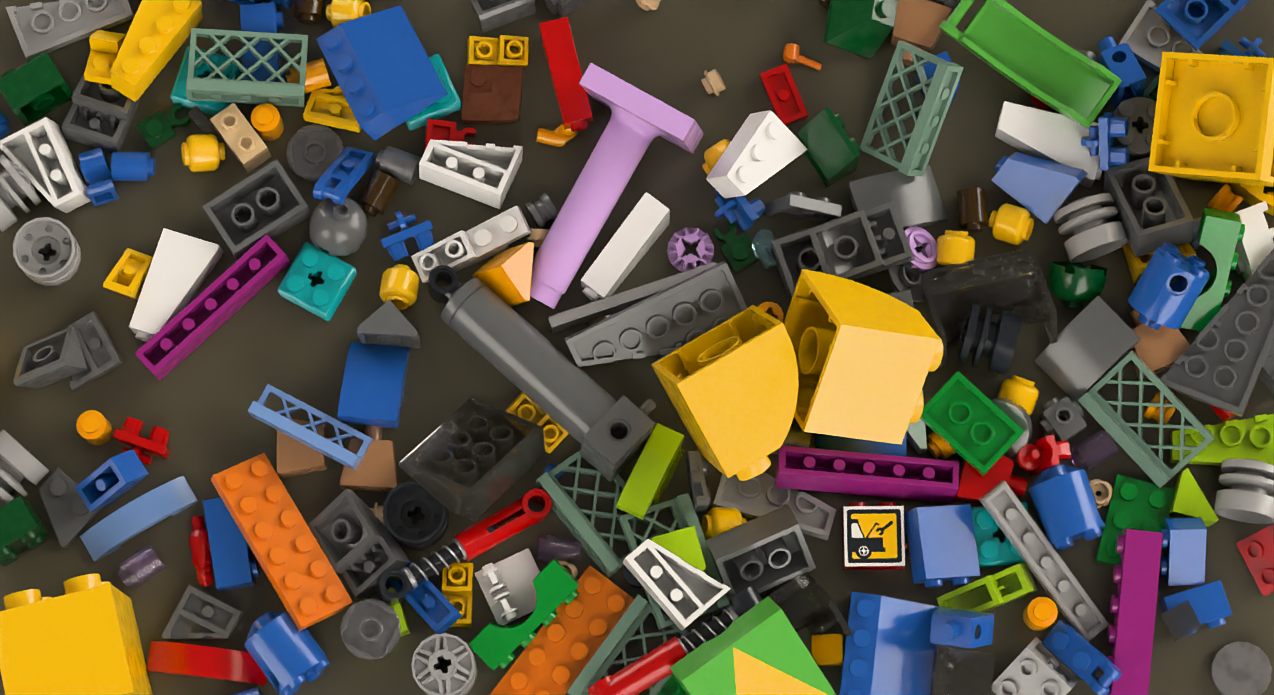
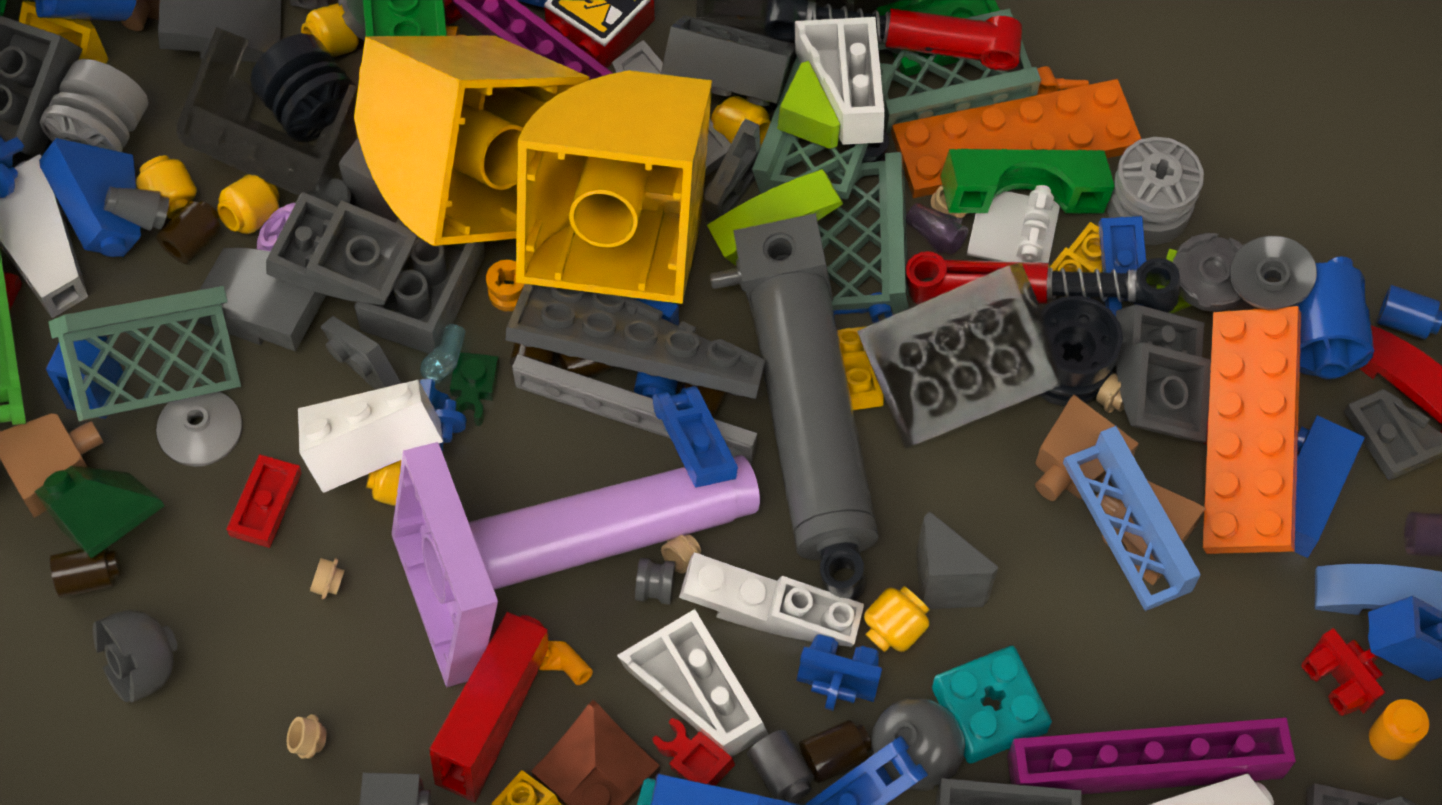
camera: 145 degrees left, 15 degrees down
(201, 552) = (1351, 505): red piece -> none
(331, 628) = (1274, 258): none -> dark grey dish
(373, 385) = (1021, 522): blue slope -> none
(509, 274) = (755, 526): light orange slope -> none
(576, 286) = (695, 436): none -> blue plate
(626, 248) = (591, 458): white slope -> none
(676, 248) = (540, 429): lavender gear -> none
(792, 56) = (208, 543): orange hand -> none
(829, 147) = (269, 394): dark green slope -> none
(846, 105) = (202, 442): none -> light grey dish
(1003, 189) = (138, 206): none -> dark grey cone
(1076, 282) = (165, 80): dark green cylinder -> none

